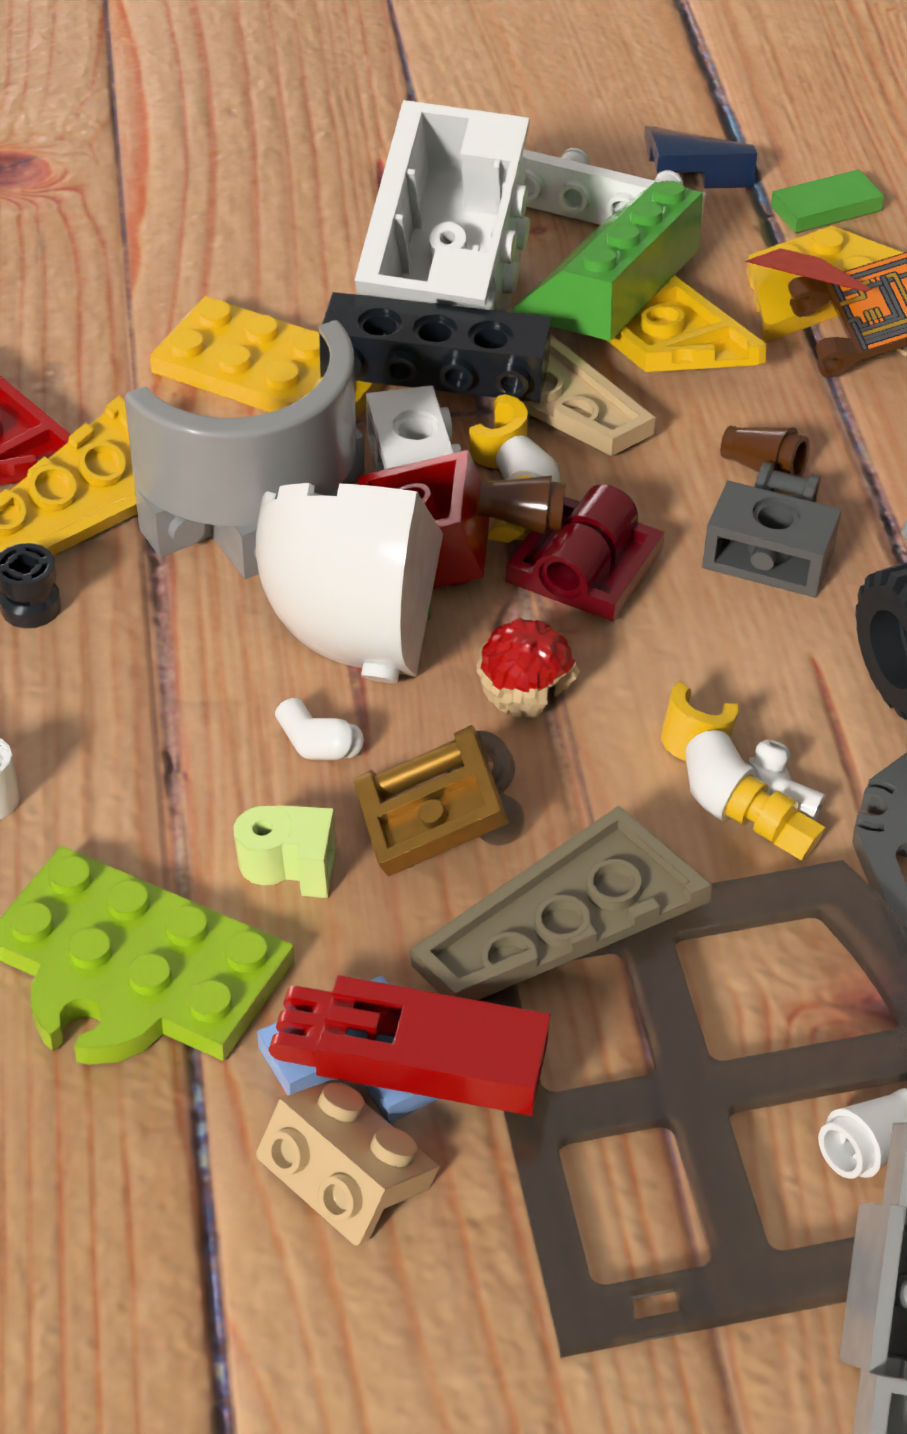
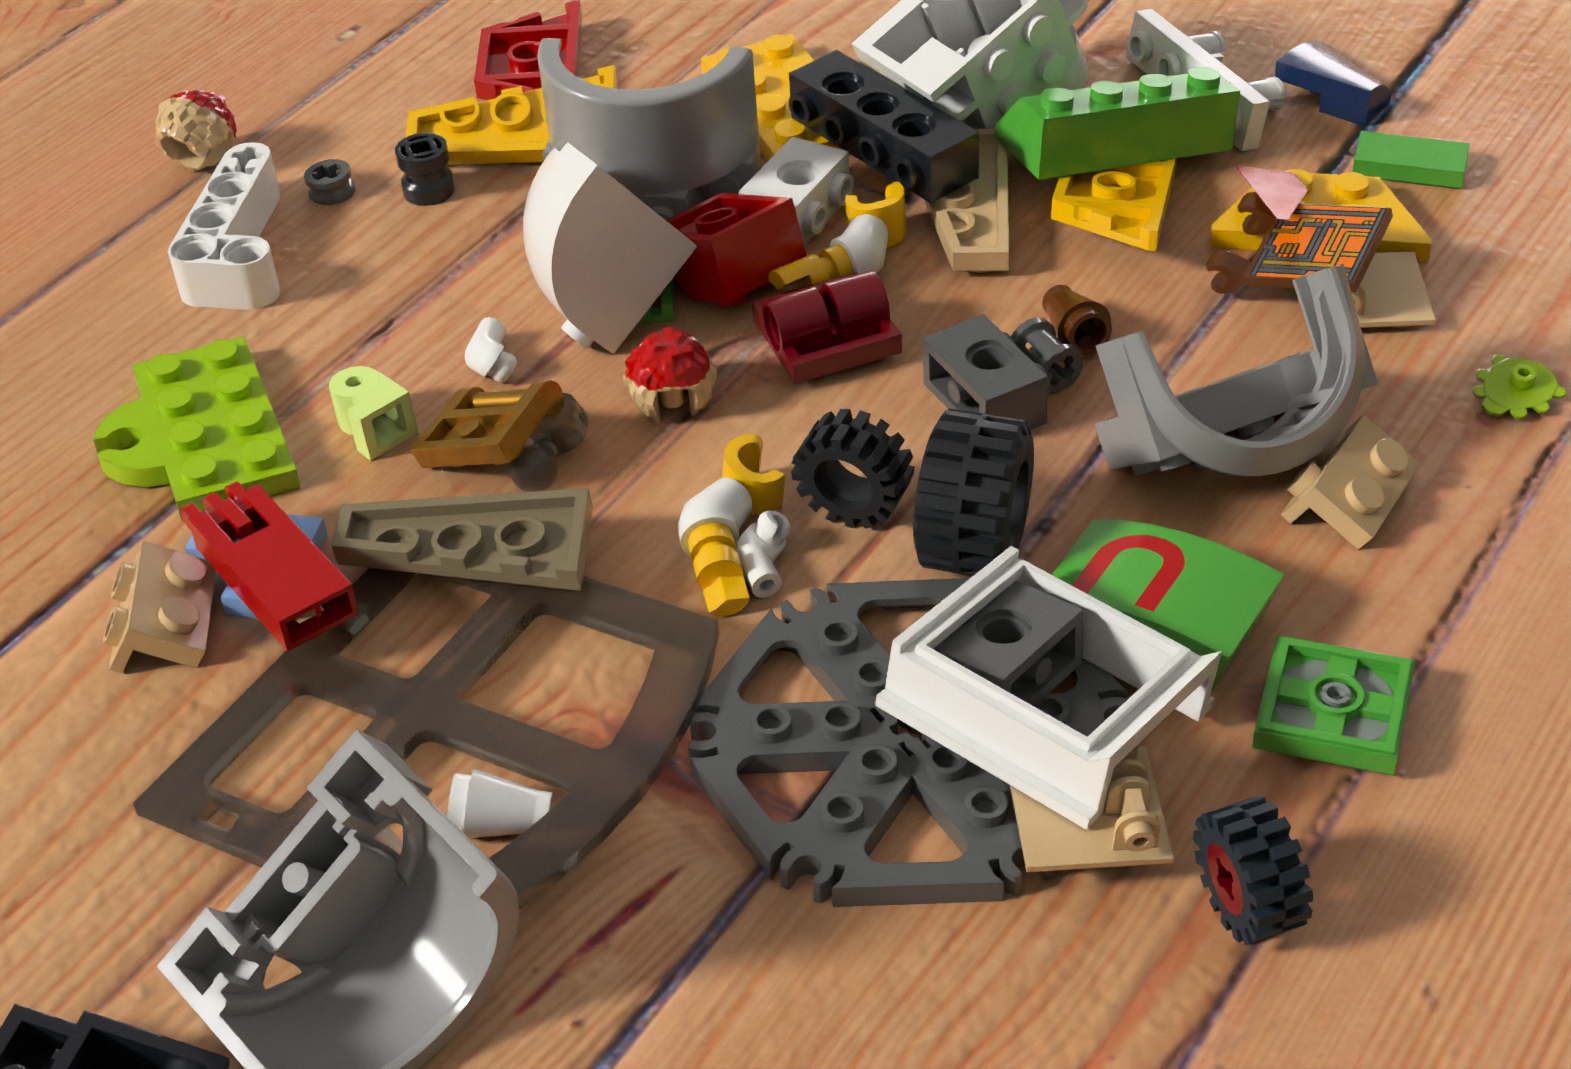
camera: 45 degrees right, 5 degrees down
(524, 502) = (796, 256): reddish brown cone -> none
(794, 668) = (863, 447): none -> black tyre

